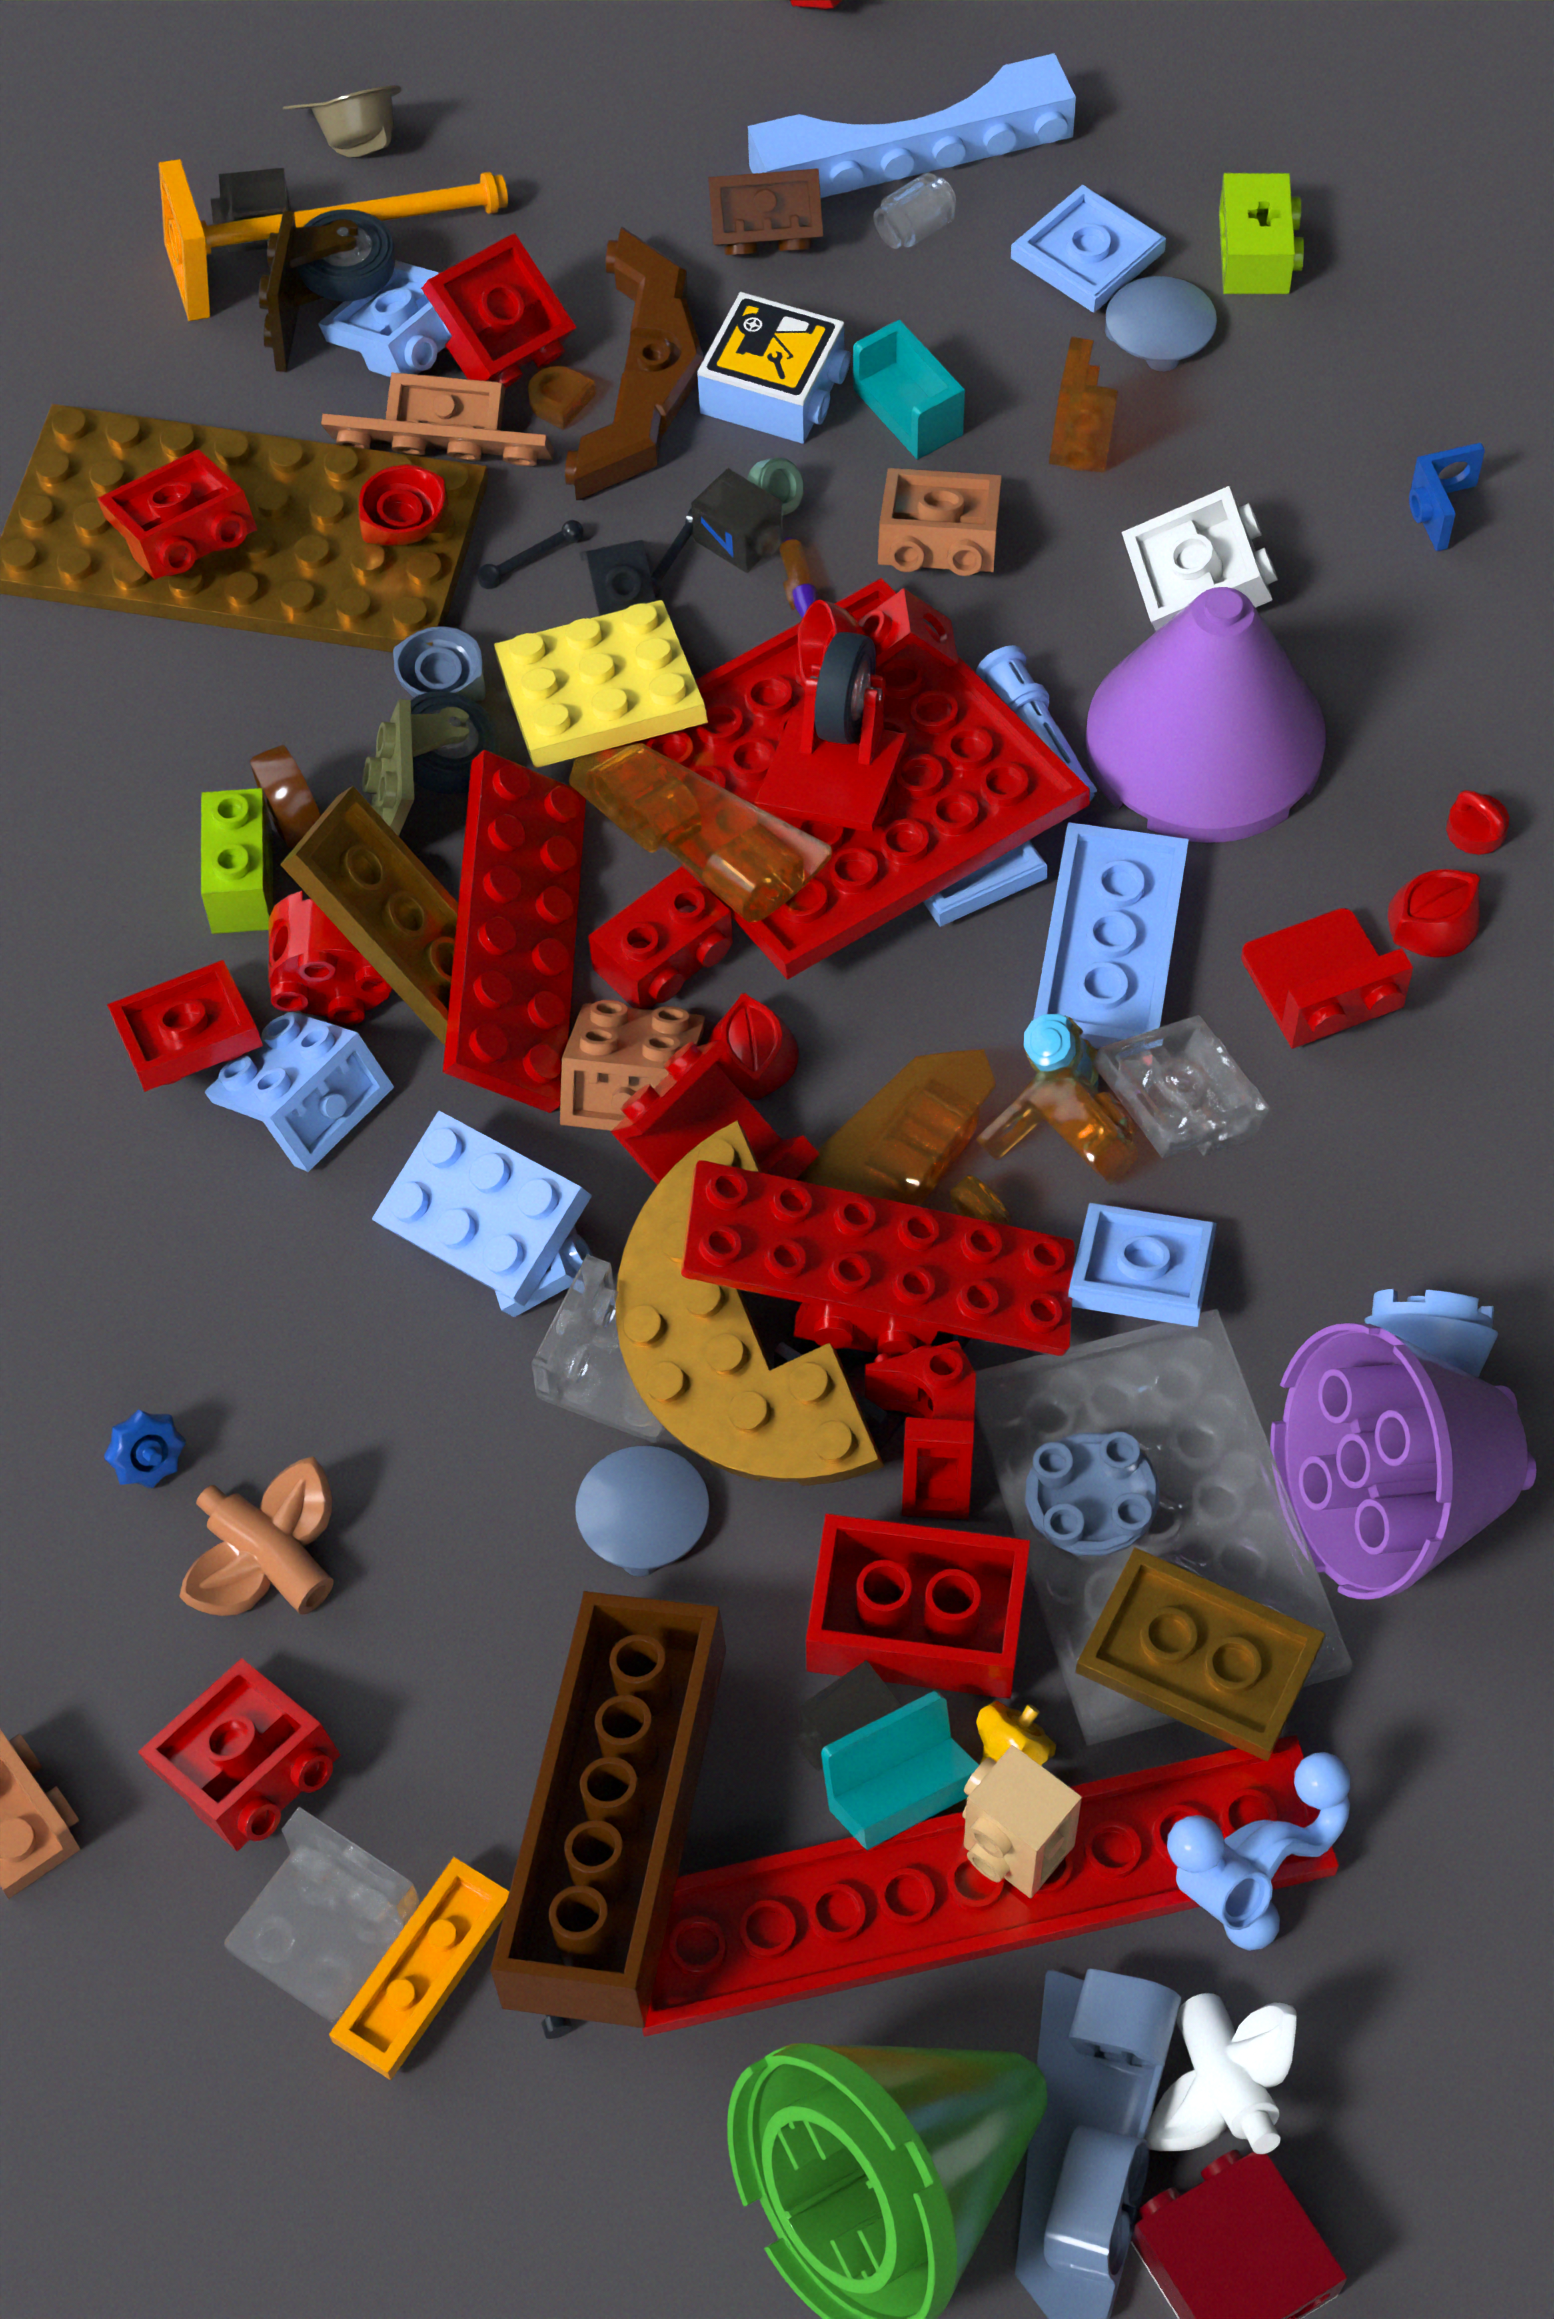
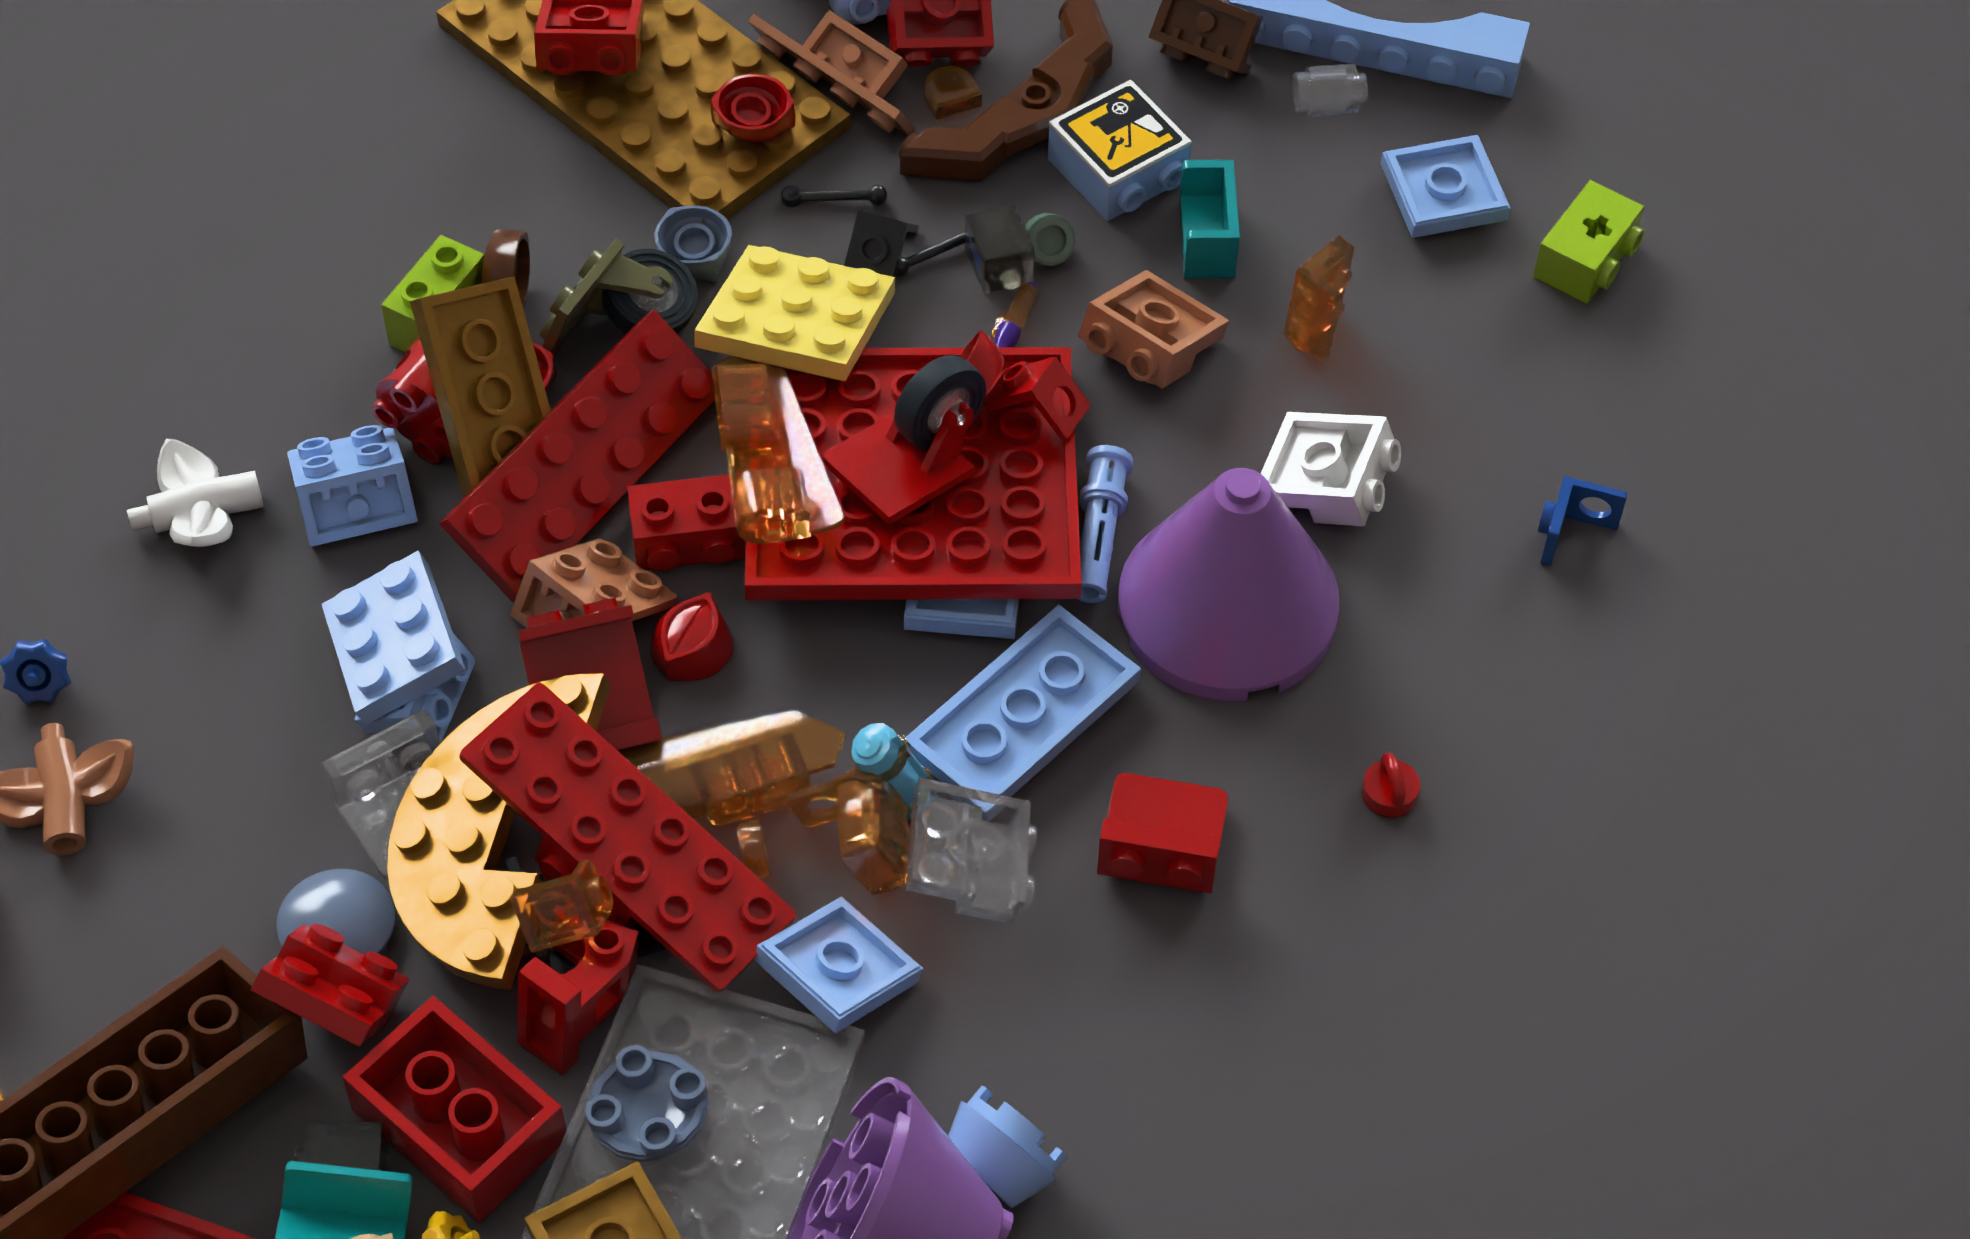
camera: 30 degrees right, 5 degrees down
(154, 1191) = (195, 498): none -> white plant
(184, 1025) = (303, 394): red plate -> none
(714, 1562) = (332, 983): none -> red plate
(887, 1359) = (563, 908): none -> clear orange bracket
(1160, 320) = (1460, 270): sand blue dish -> none
(1436, 913) = (1299, 837): red hat -> none

